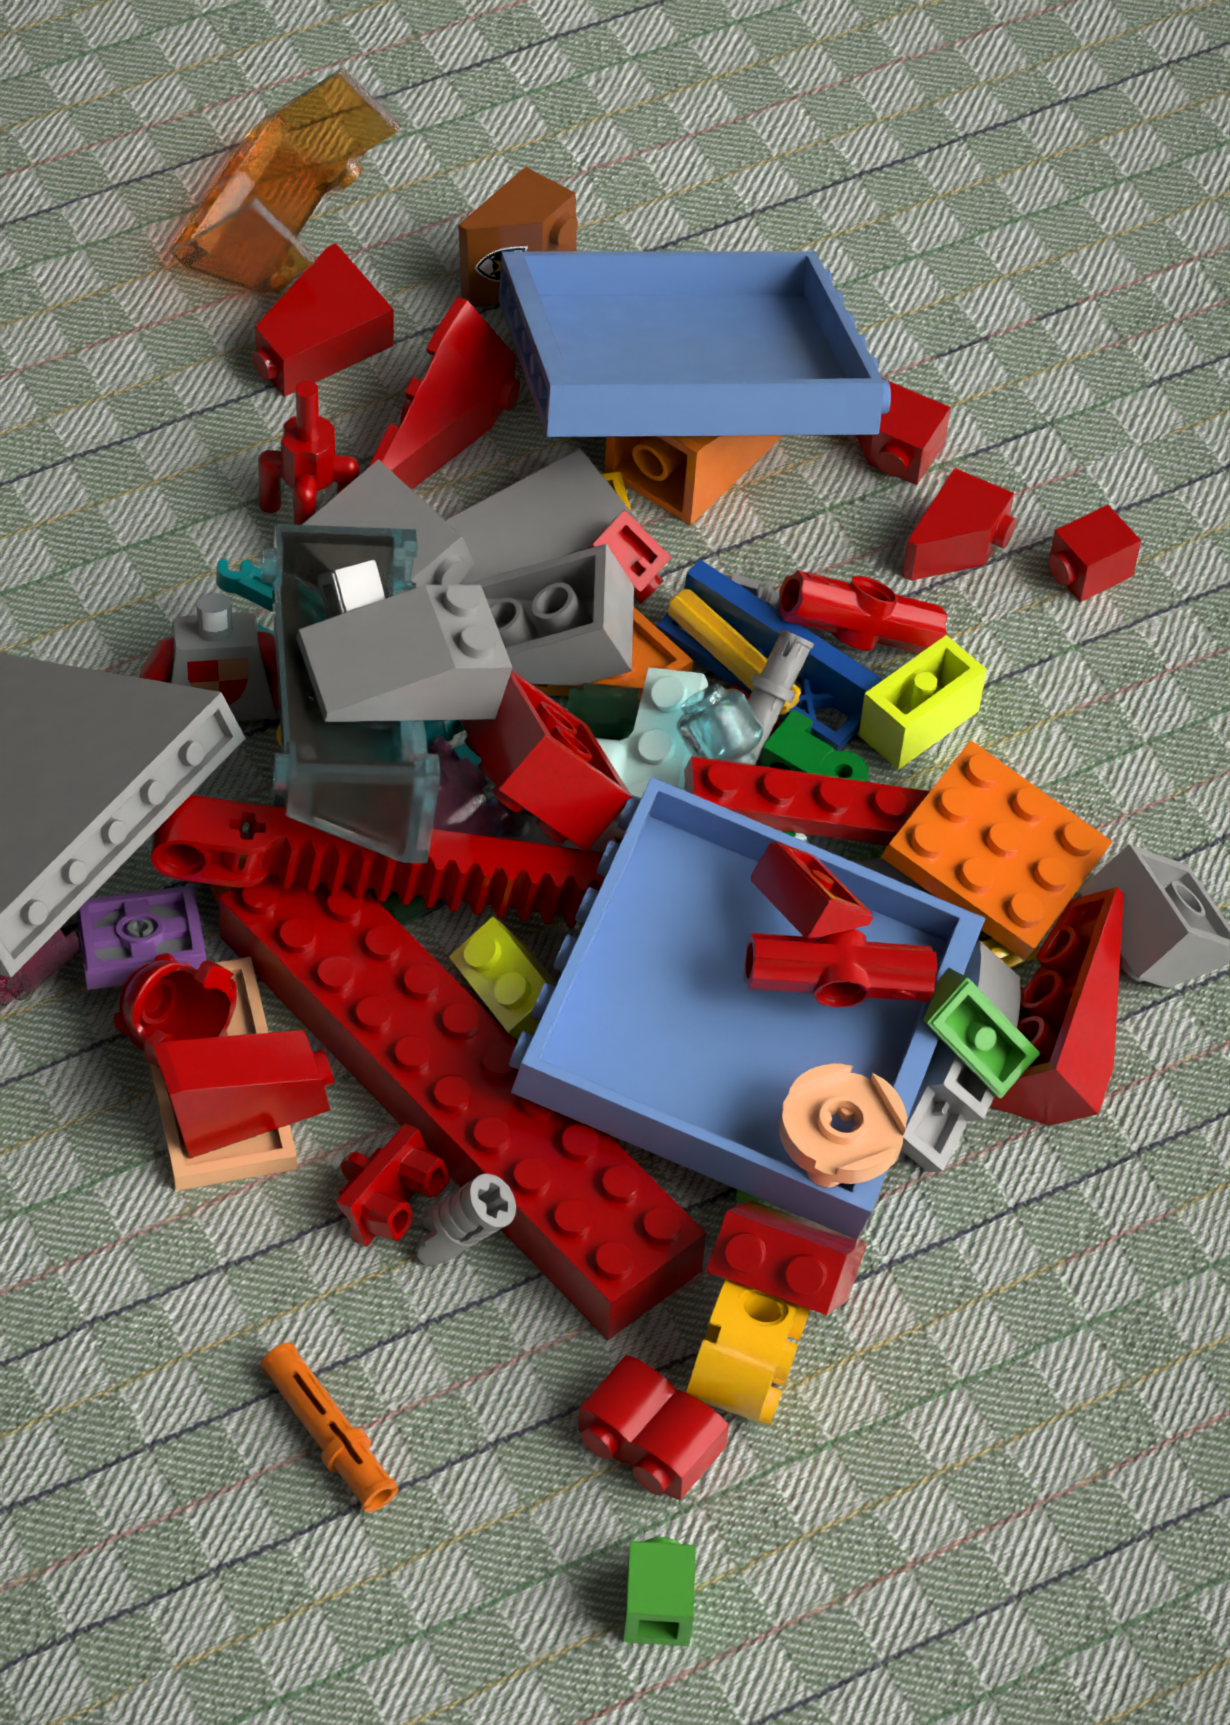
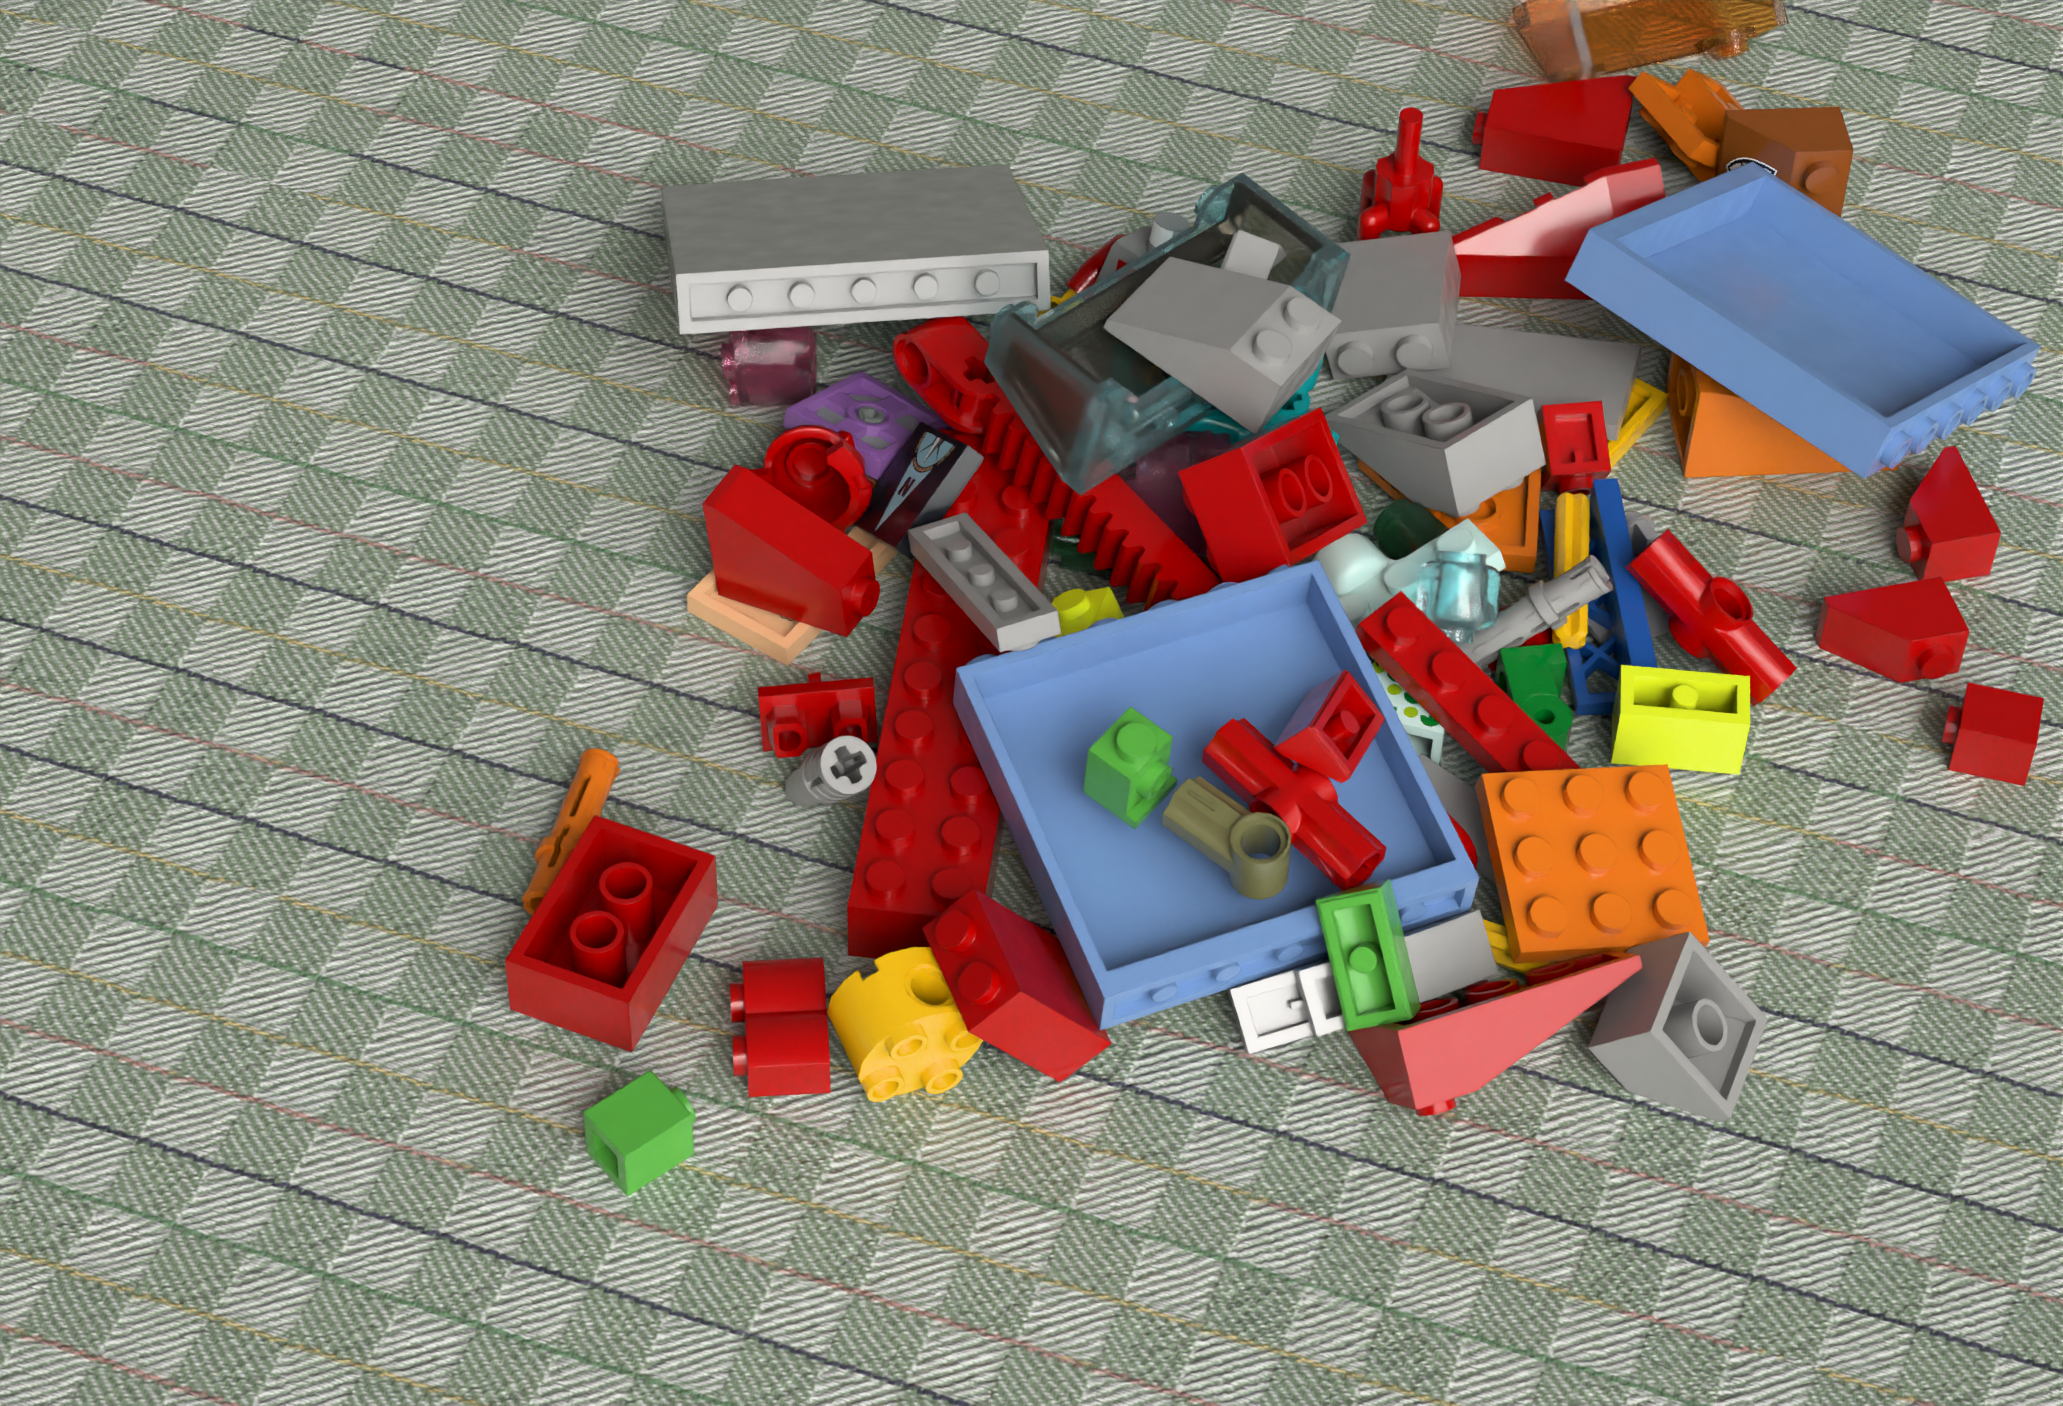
camera: 50 degrees right, 5 degrees down
(273, 952) = (918, 486): none -> black tile
(408, 250) = (1687, 116): none -> orange brick
(446, 983) = (984, 583): none -> light grey plate
(469, 1469) = (612, 933): none -> red brick
(722, 1032) = (1130, 768): none -> bright green brick
(828, 1025) = (1229, 834): none -> olive piece
(838, 1156) = (1144, 944): light nougat plate -> none

